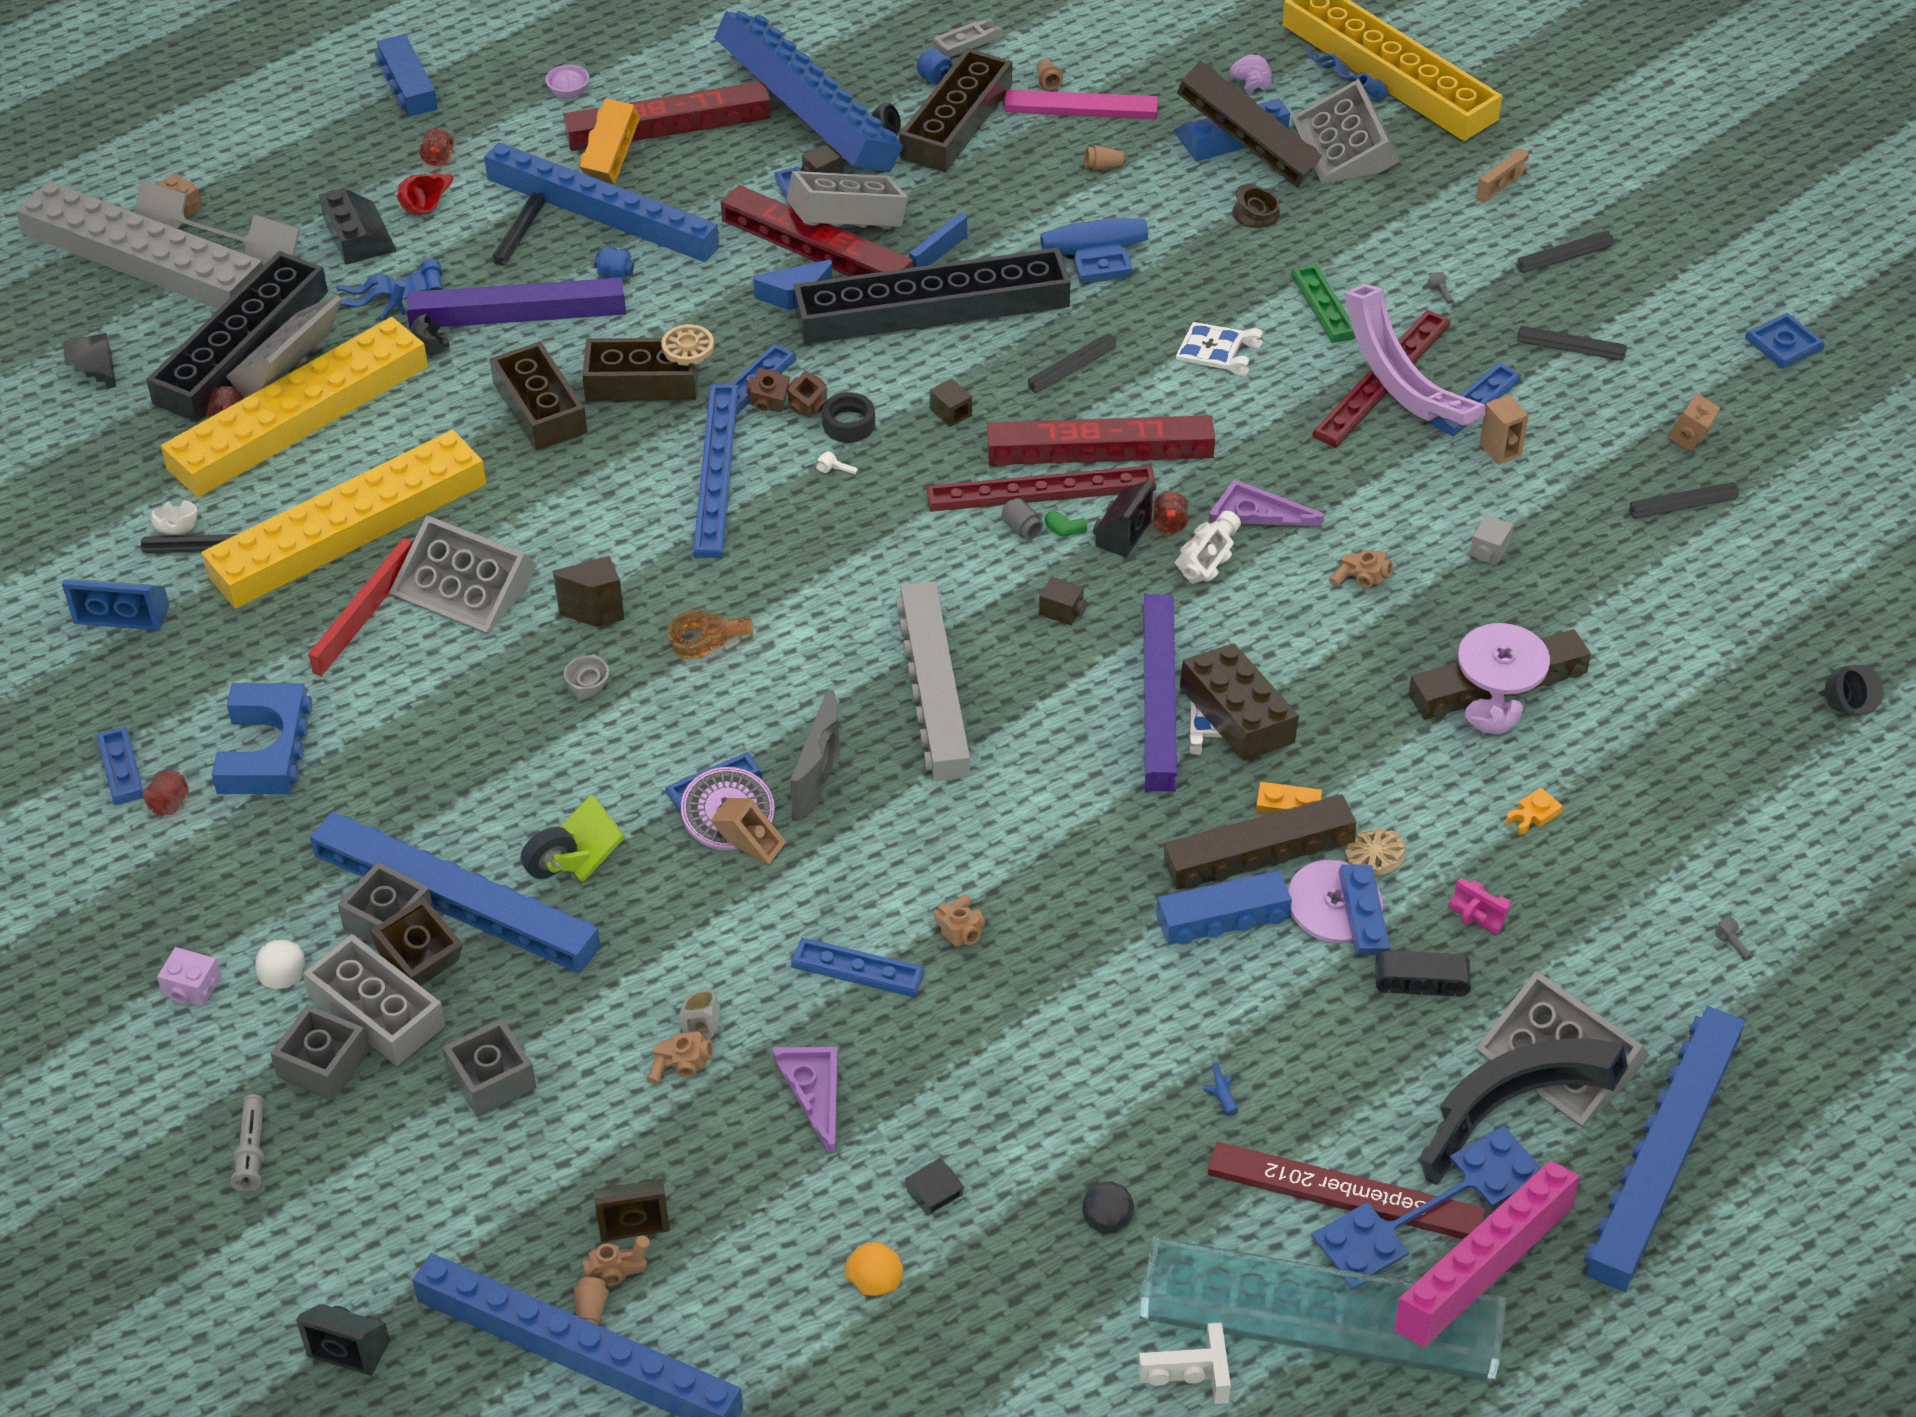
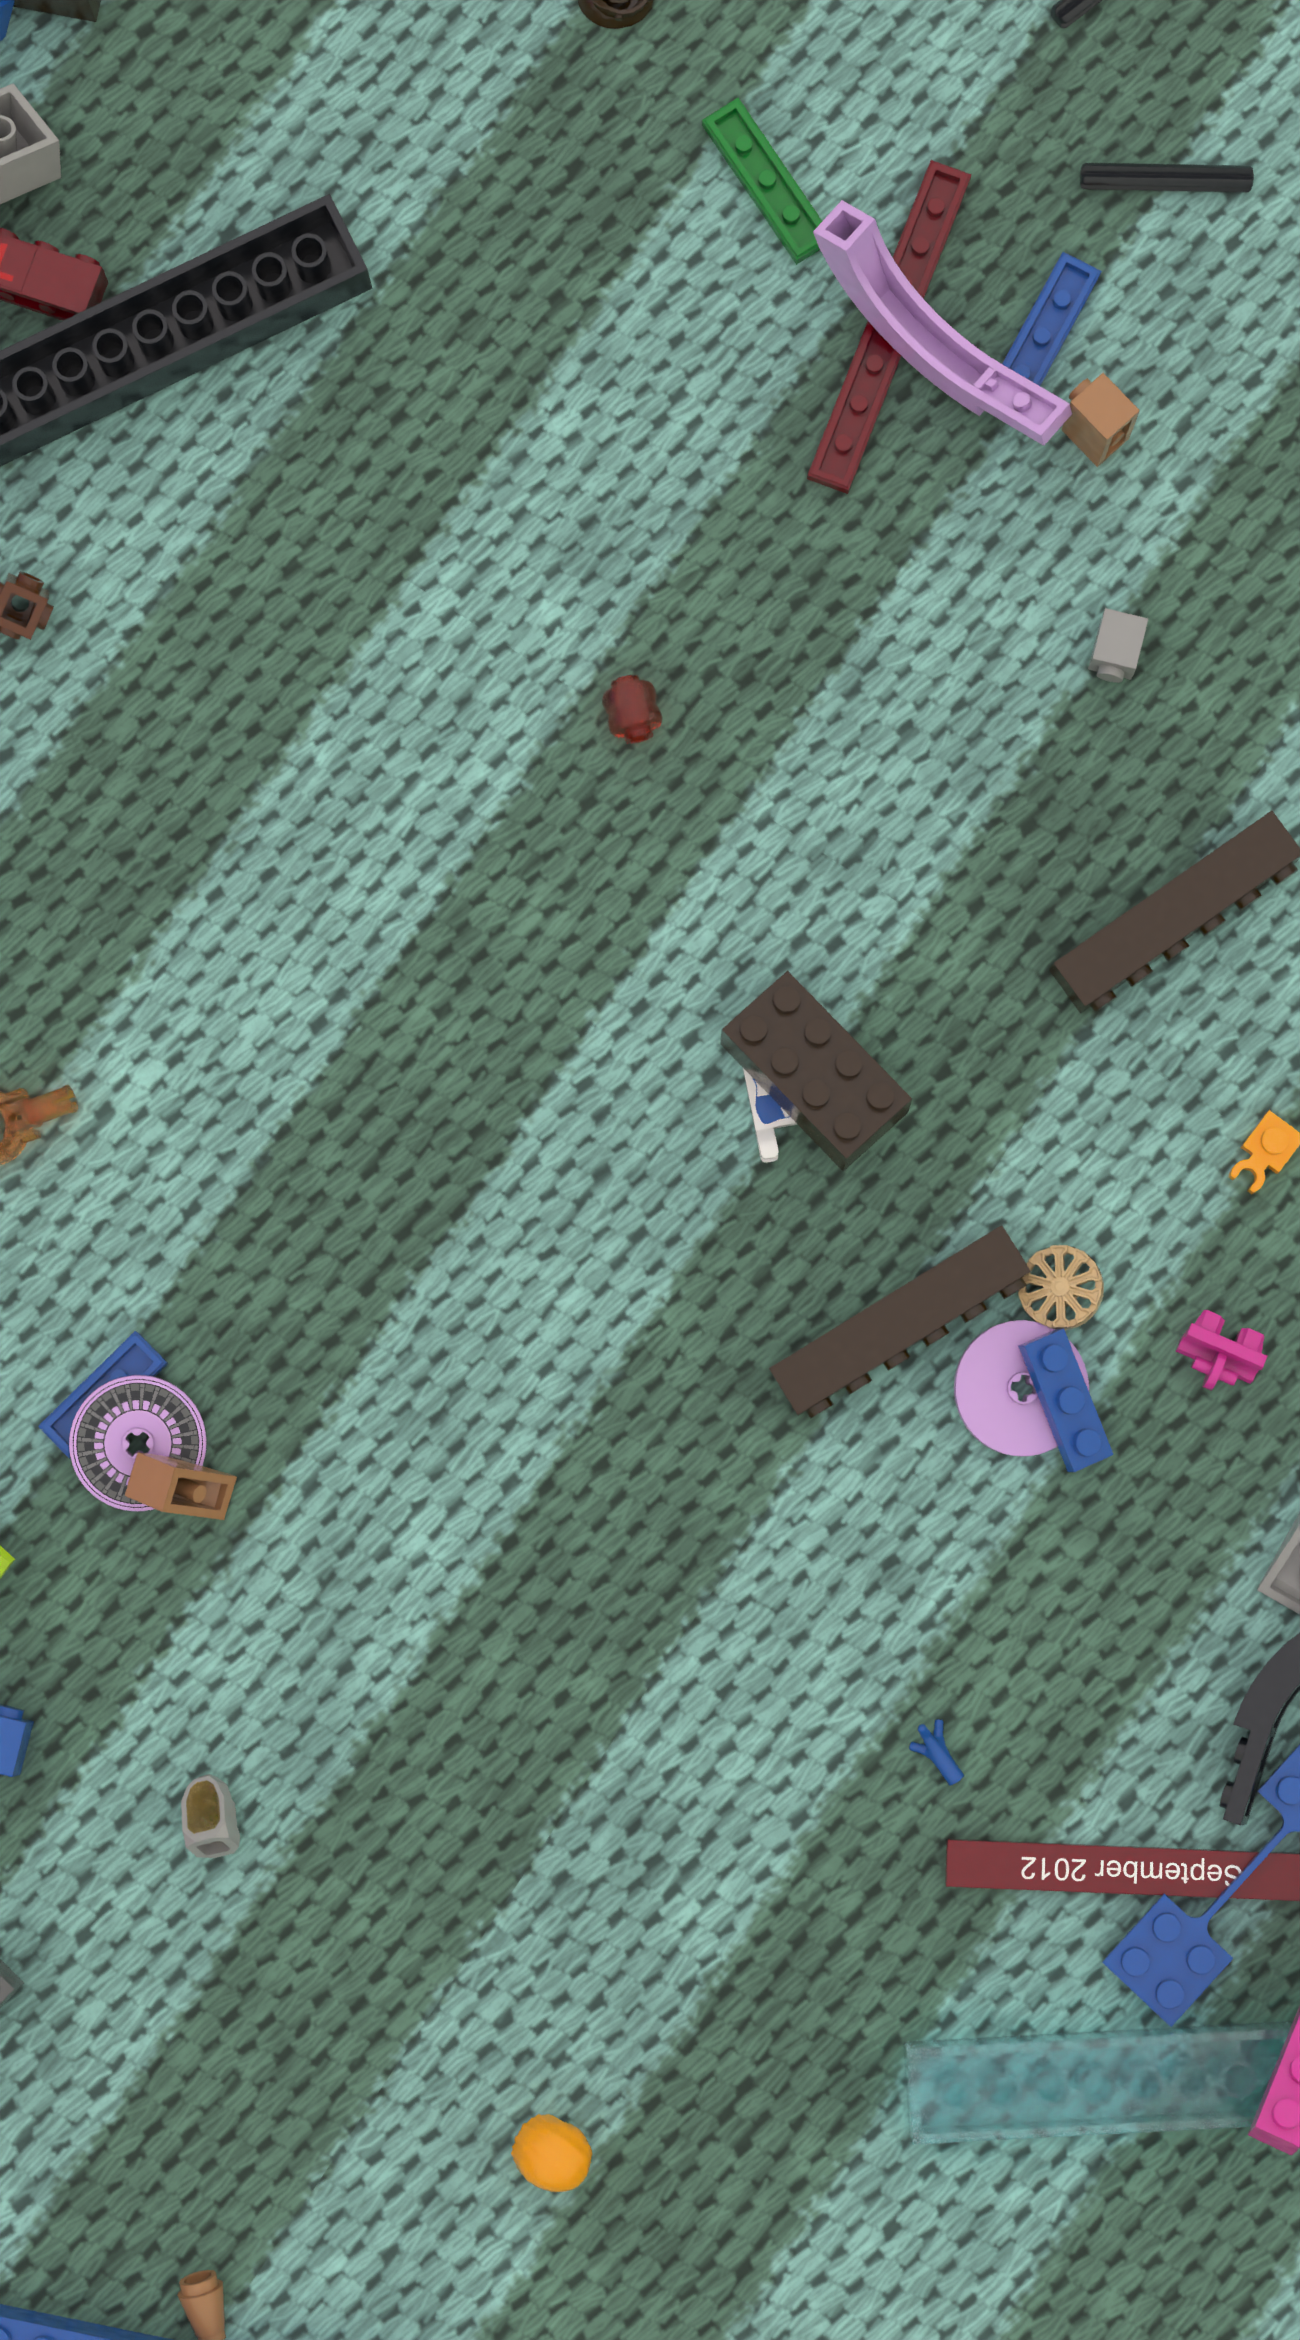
camera: 10 degrees left, 35 degrees up
(614, 1264) = (213, 2243): medium nougat piece -> none
(631, 1209) = (211, 2156): dark brown slope -> none
(685, 1052) = (206, 1886): medium nougat piece -> none
(813, 1080) = (391, 1878): medium lavender wing -> none
(816, 759) = (242, 1335): dark grey slope -> none
(828, 461) = (88, 724): white hand -> none
(852, 431) = (83, 594): black tyre -> none
(858, 967) = (397, 1669): blue tile -> none
(934, 681) = (365, 1130): light grey brick -> none
(934, 1186) = (597, 2009): black piece -> none
(940, 242) = (130, 205): blue tile -> none
(950, 402) = (242, 557): dark brown brick -> none
(959, 922) = (516, 1569): medium nougat piece -> none
(1022, 518) = (413, 775): dark grey brick -> none
(1036, 488) = (424, 696): dark red tile -> none
(1062, 601) = (514, 930): dark brown brick -> none
(1063, 526) = (477, 769): green arm -> none
(1071, 363) = (406, 415): black axle -> none
(1098, 246) = (385, 149): blue plate -> none
(1100, 440) = (492, 582): dark red brick -> none
(1108, 1207) = (830, 1978): black hair -> none
(1125, 519) = (567, 746): black slope -> none
(1159, 693) = (695, 1070): dark purple tile -> none
(1191, 1365) = (993, 2200): white bracket -> none
(1208, 548) = (704, 772): white brick -> none
(1218, 346) = (615, 320): white flag -> none
(1223, 908) = (874, 1447): blue brick -> none
(1263, 508) = (751, 659): medium lavender wing -> none
(1280, 797) = (921, 1220): light orange plate -> none
(1368, 567) = (944, 745): medium nougat piece -> none
(1423, 972) = (1166, 1490): black beam -> none
(1438, 280) = (936, 87): dark grey hand -> none
(1494, 715) = (1179, 996): lavender hair -> none
(1503, 658) = (1148, 914): lavender piece -> none

